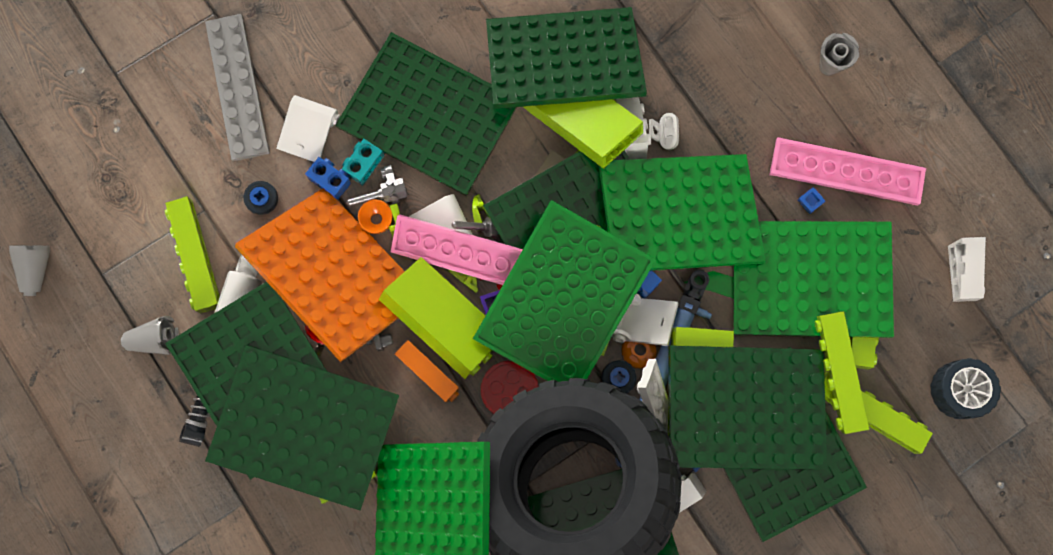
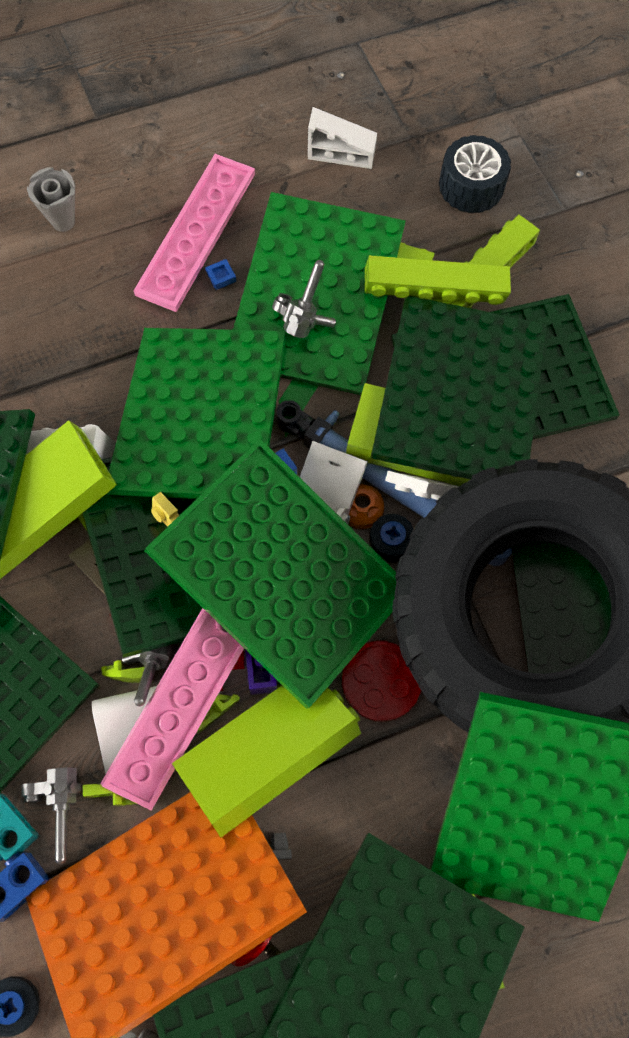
camera: 80 degrees left, 10 degrees down
(371, 208) = (78, 821): orange piece -> none
(428, 372) = (337, 788): orange brick -> none
(592, 207) = (163, 509): none -> light yellow plate
(667, 131) = (87, 409): white bracket -> none
(781, 269) = (301, 313): none -> flat silver piece

